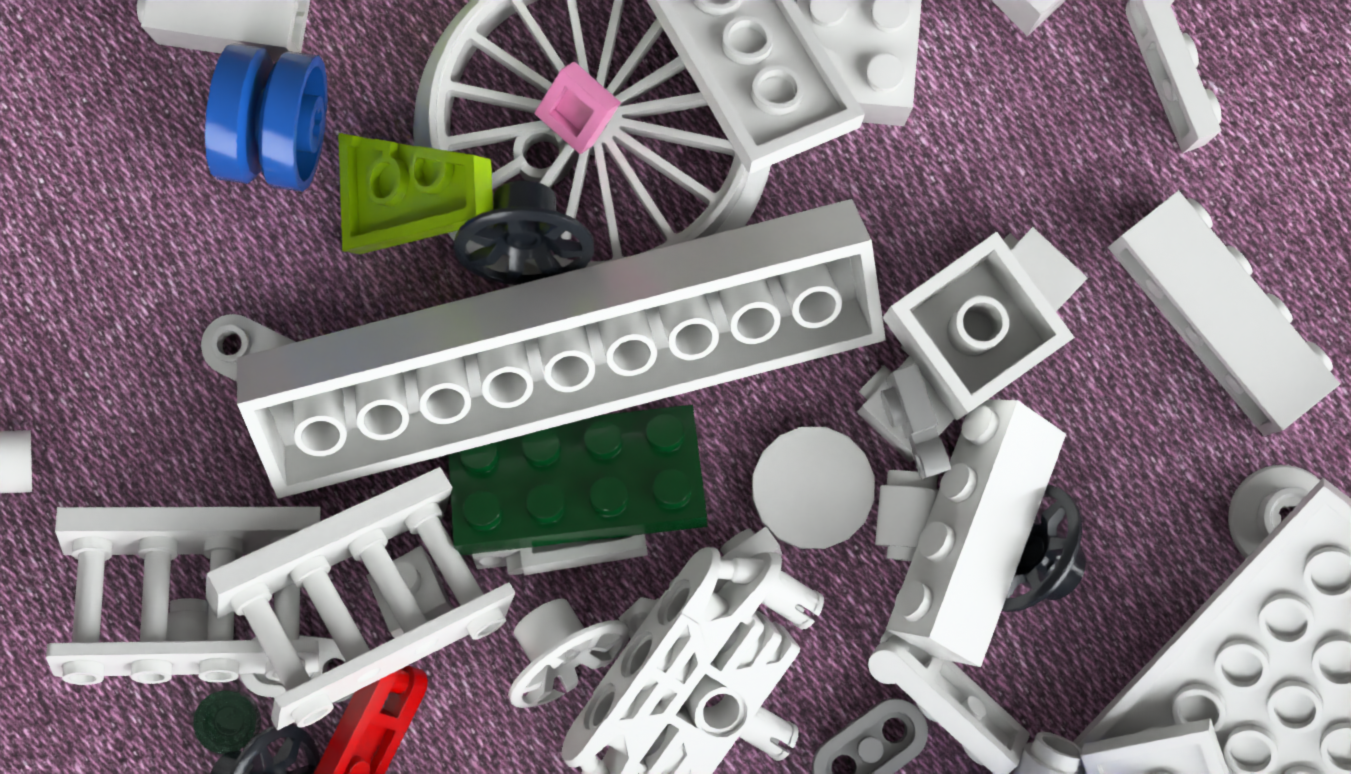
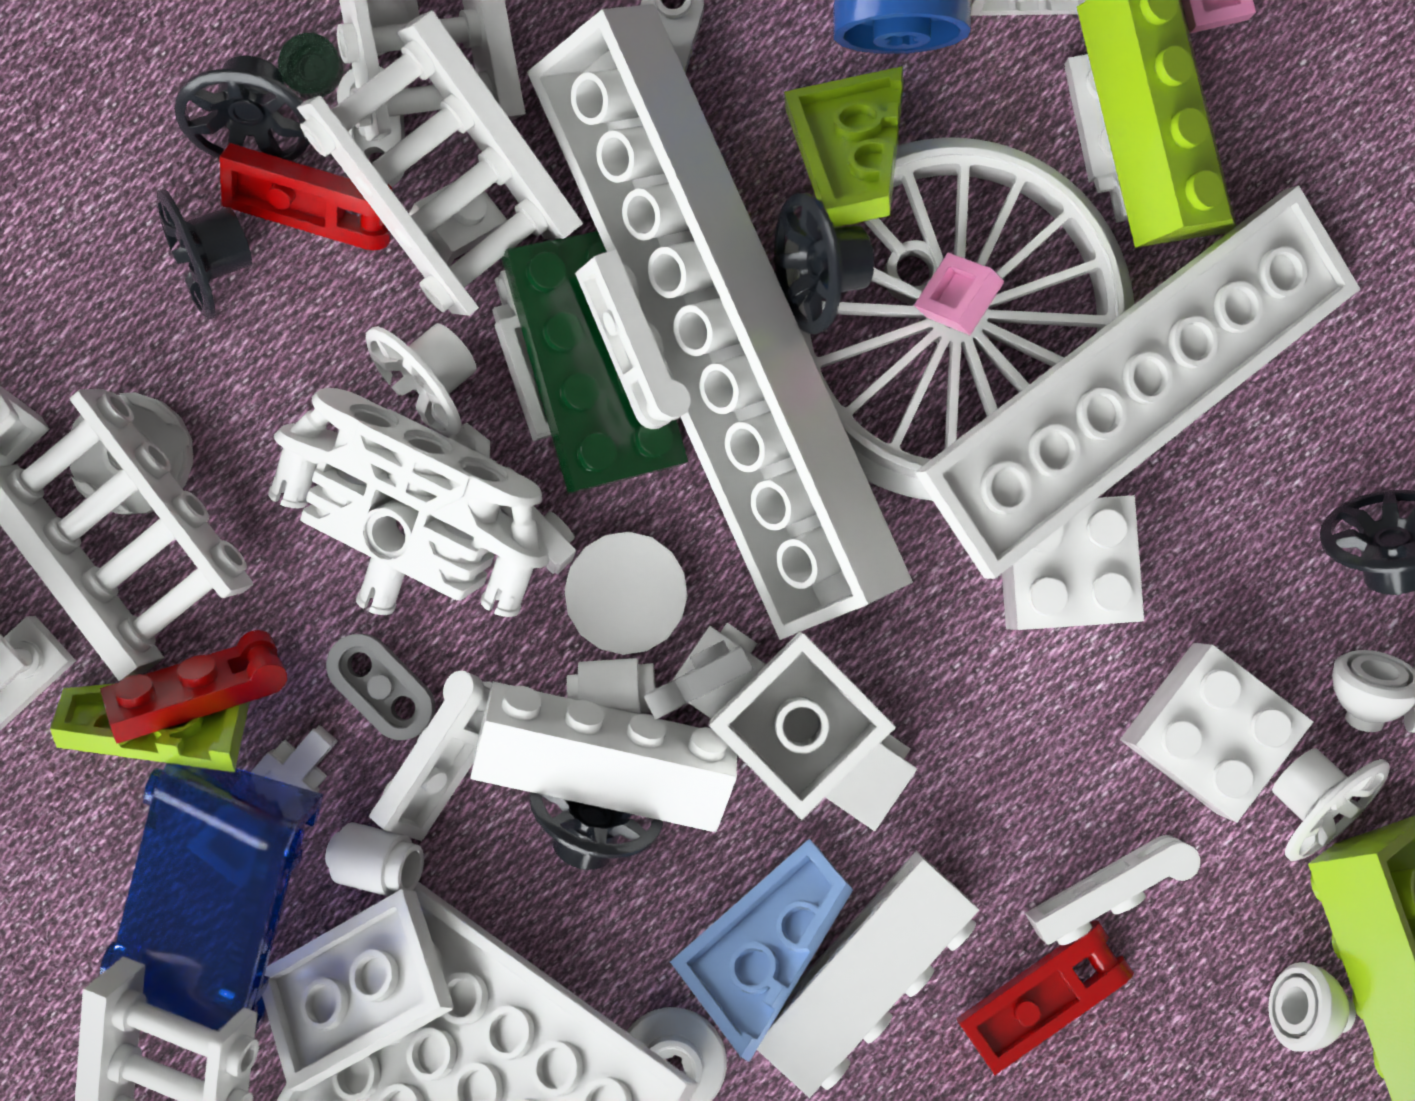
camera: 80 degrees right, 5 degrees up
(569, 435) = (631, 341): none -> white plate
(1183, 407) = (762, 946): none -> light blue wing
(1271, 147) = (1043, 999): none -> red plate

